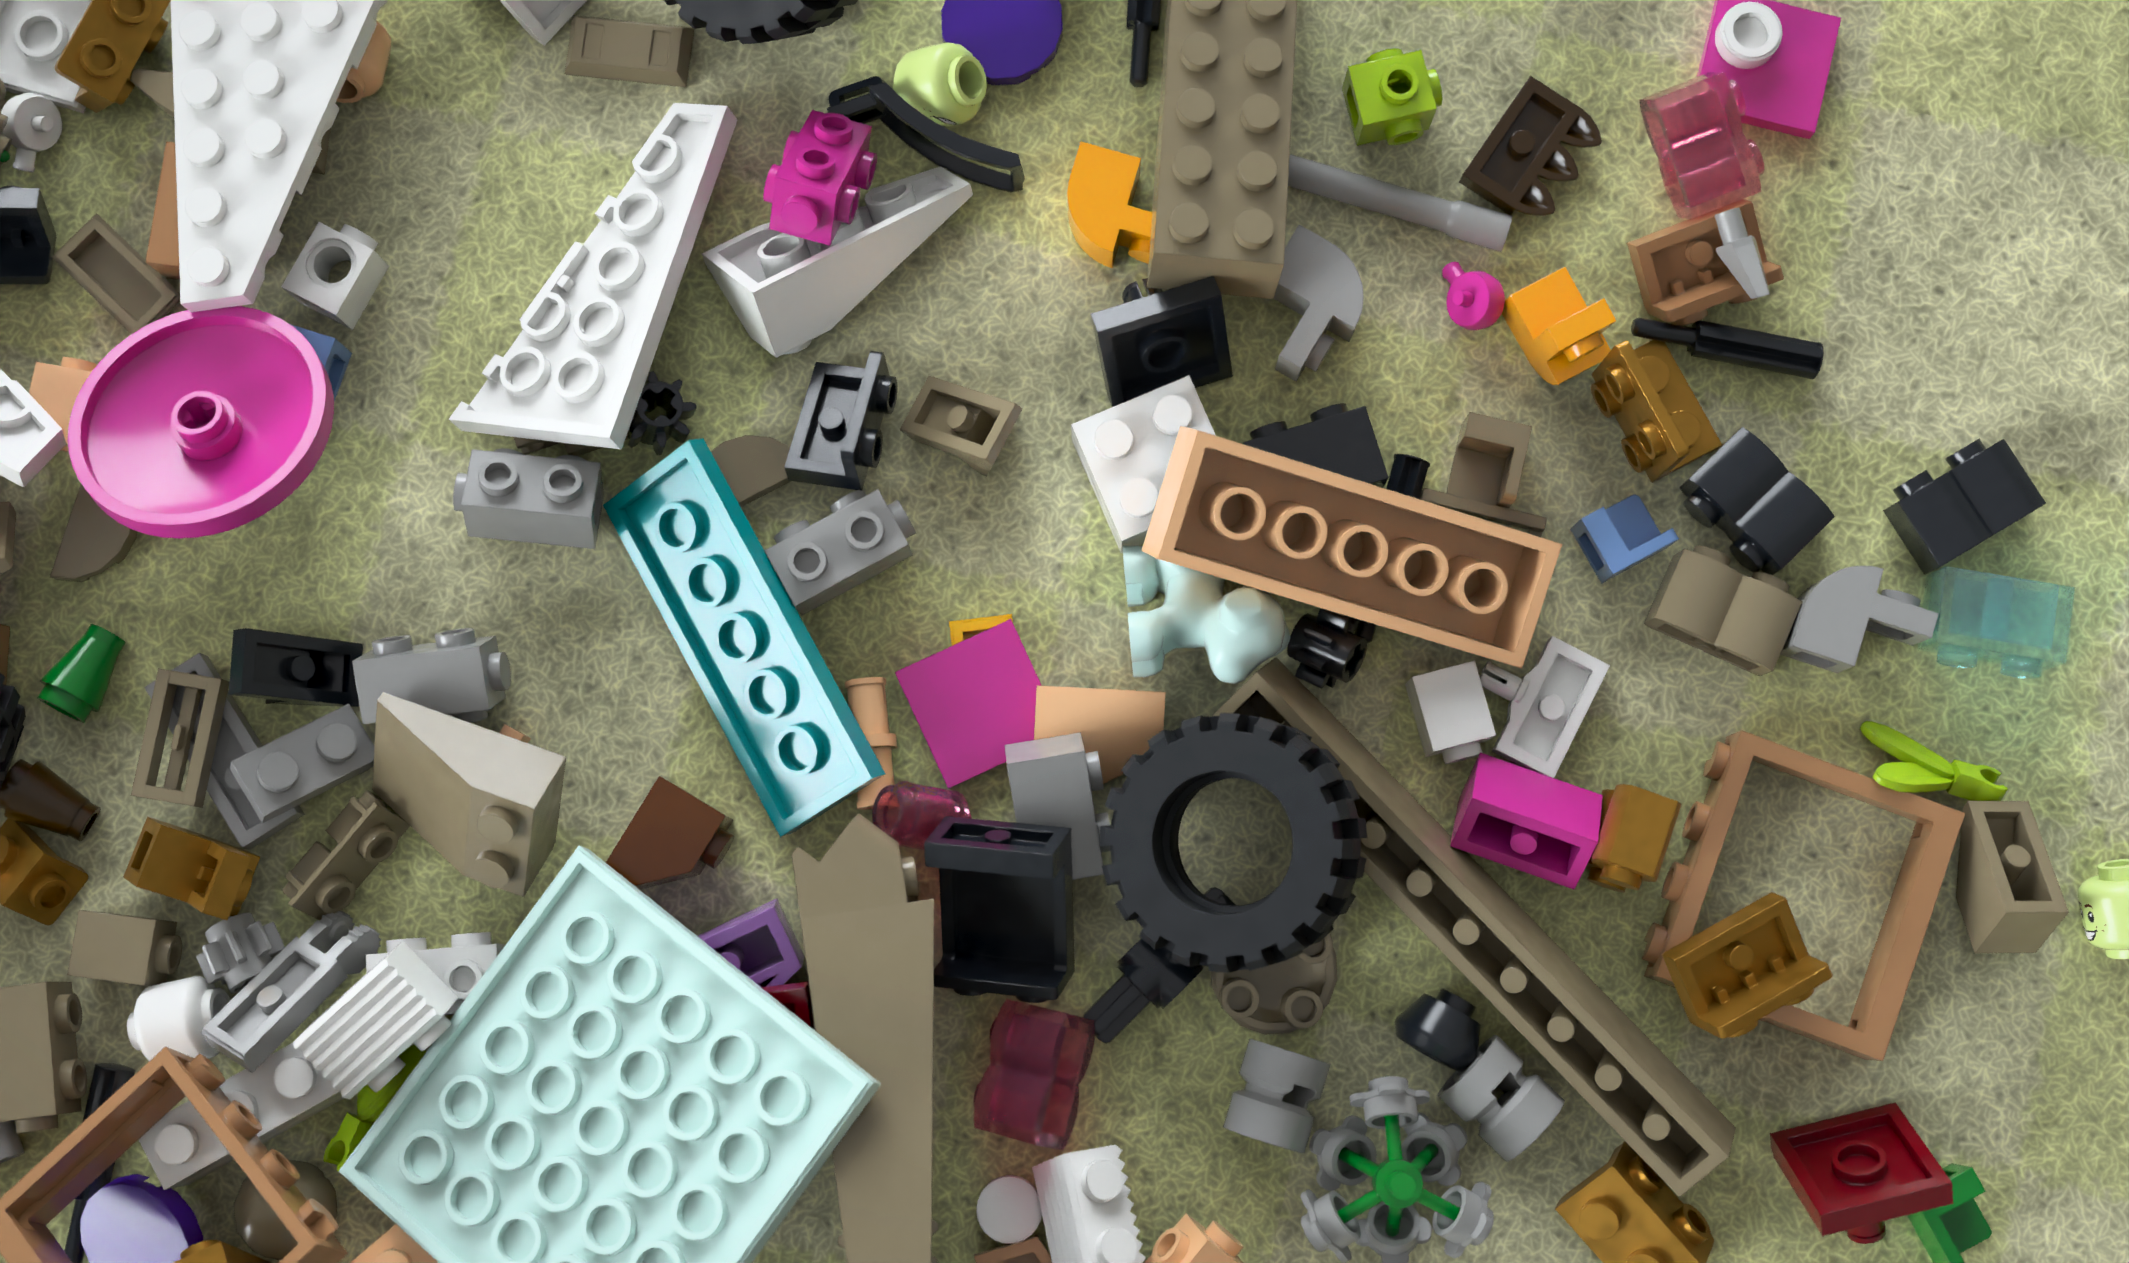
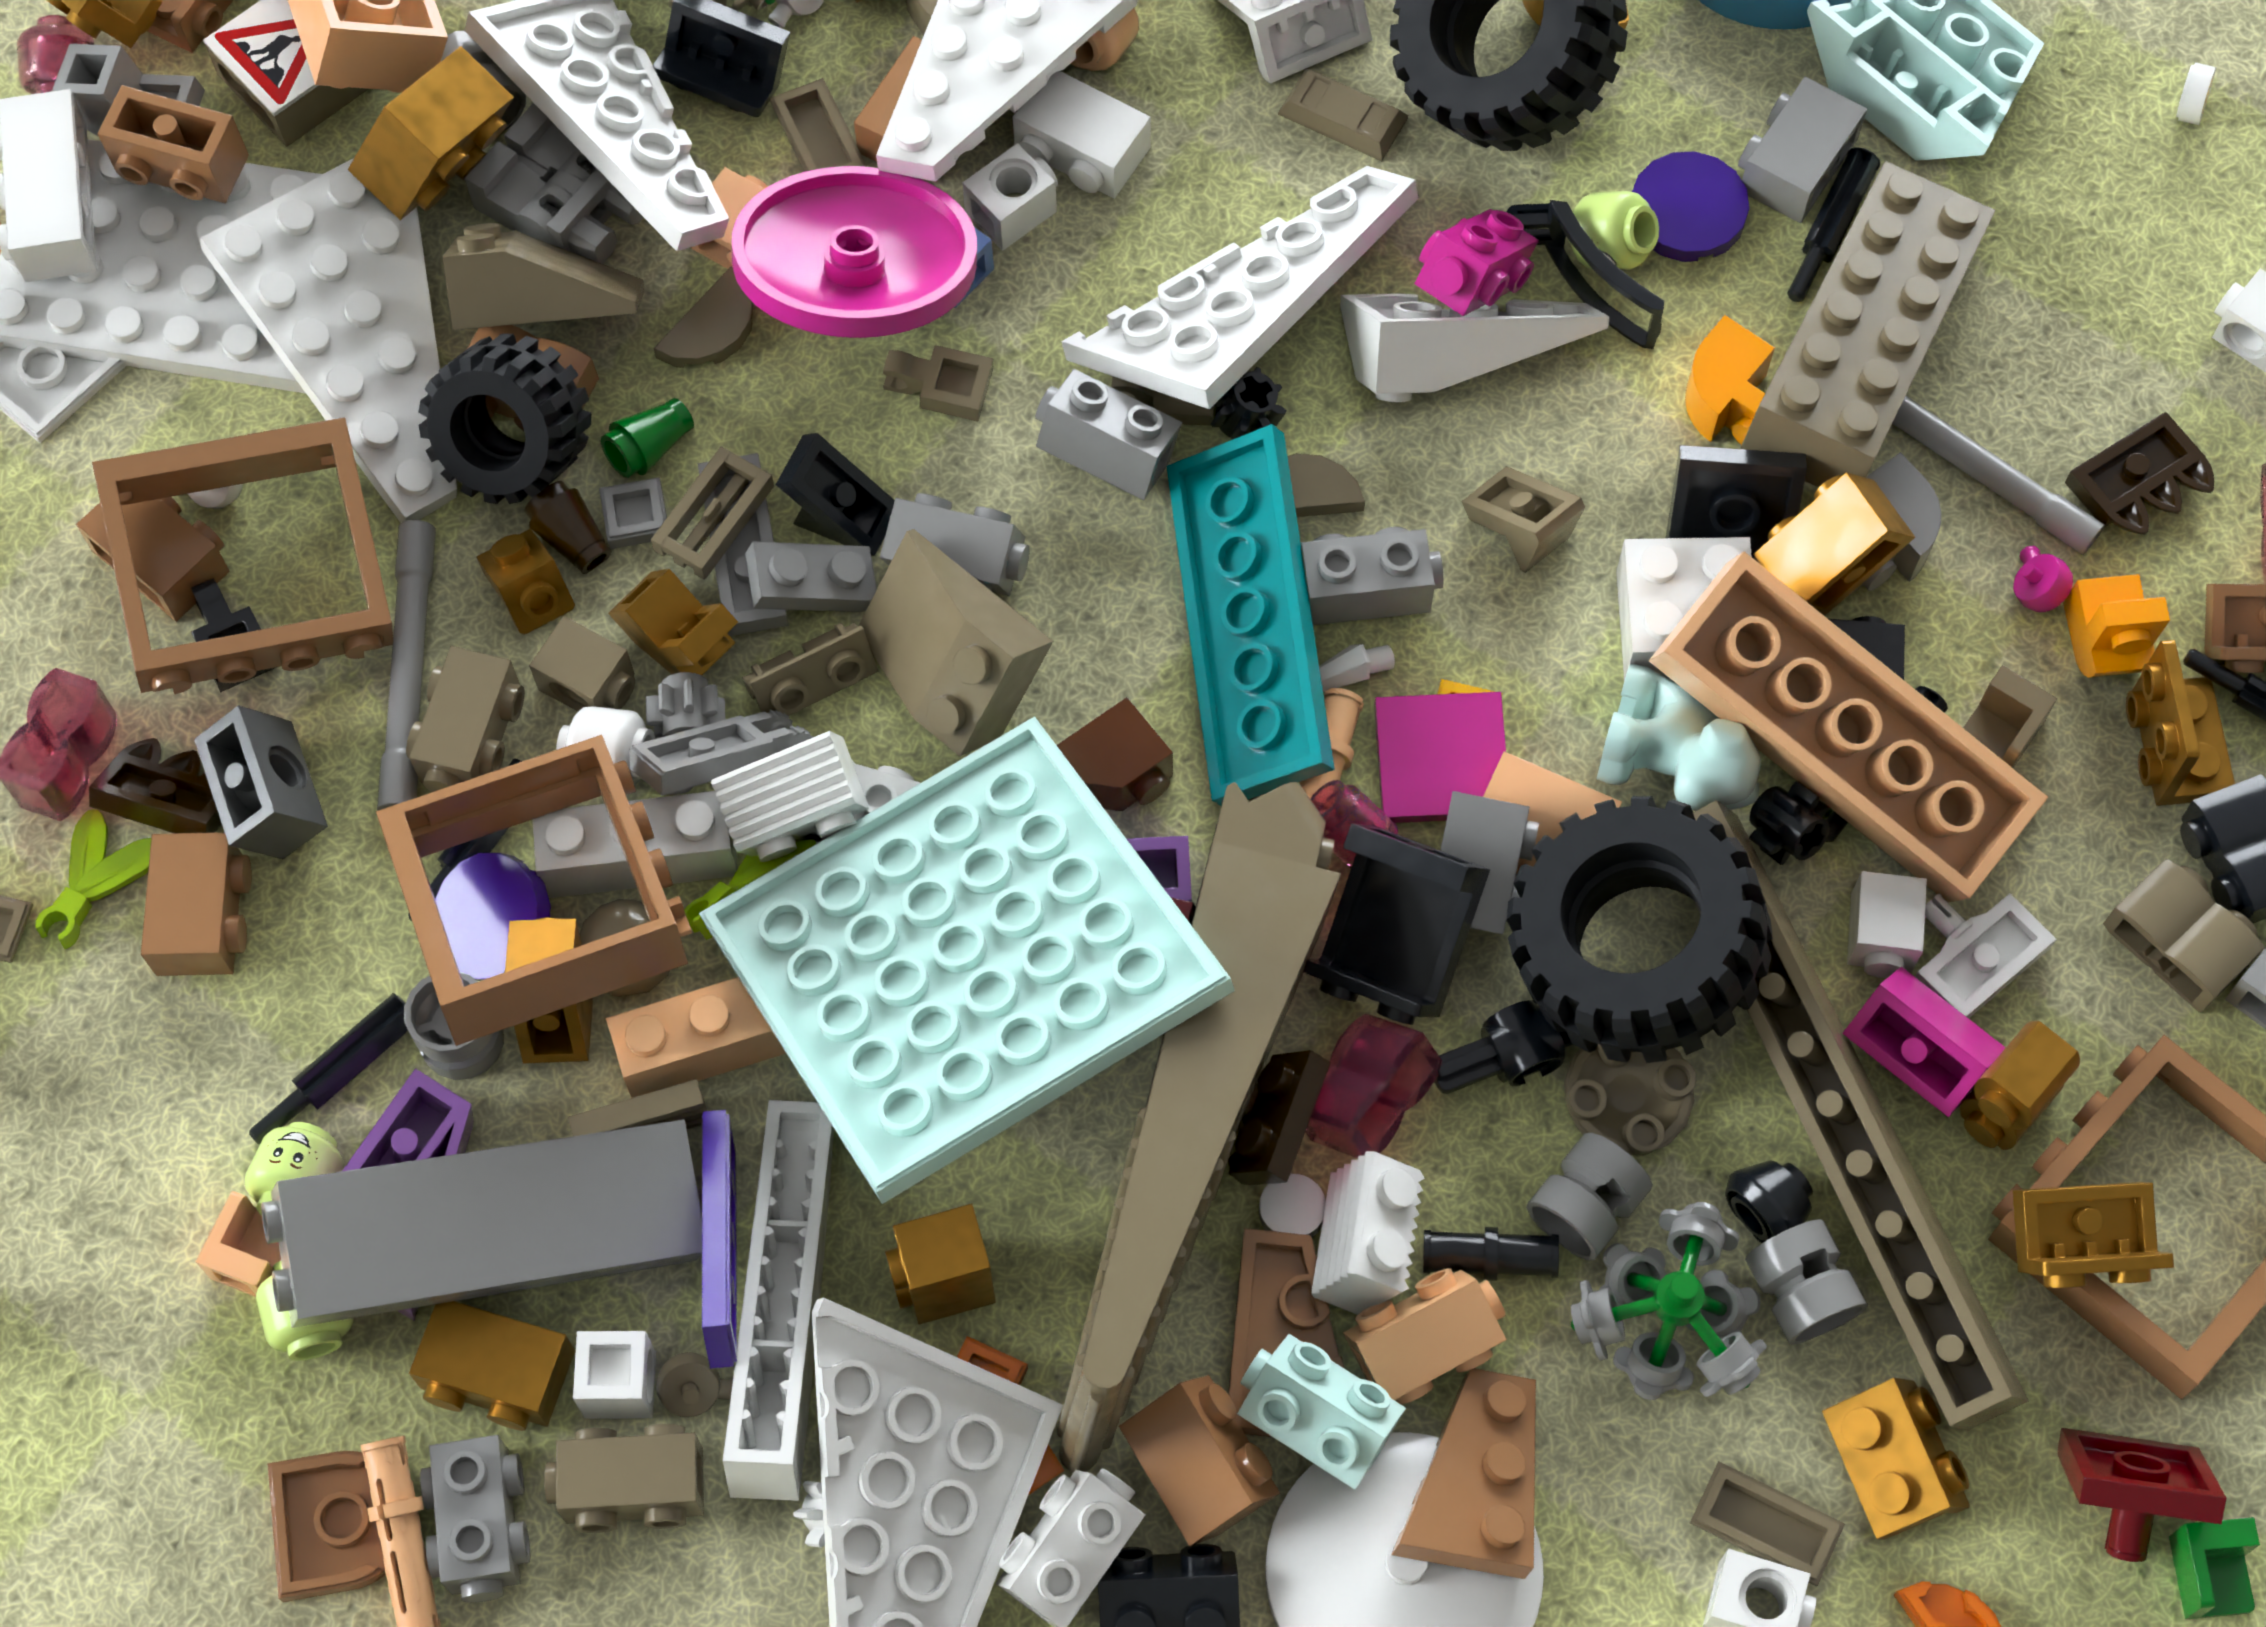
camera: 20 degrees right, 15 degrees down
(103, 756) = (632, 512): none -> light grey tile
(356, 499) = (948, 382): none -> dark tan plate
(380, 180) = (1083, 134): none -> white brick
(841, 424) = (1413, 471): black bracket -> none
(860, 643) = (1355, 665): none -> white bar
(965, 1144) = (1278, 1118): none -> dark brown plate
(1206, 1182) = (1491, 1253): none -> black pin
(1271, 356) = (1835, 541): none -> brick
(1391, 97) = (2027, 382): lime brick -> none
(1620, 537) = (2107, 838): medium blue panel -> none

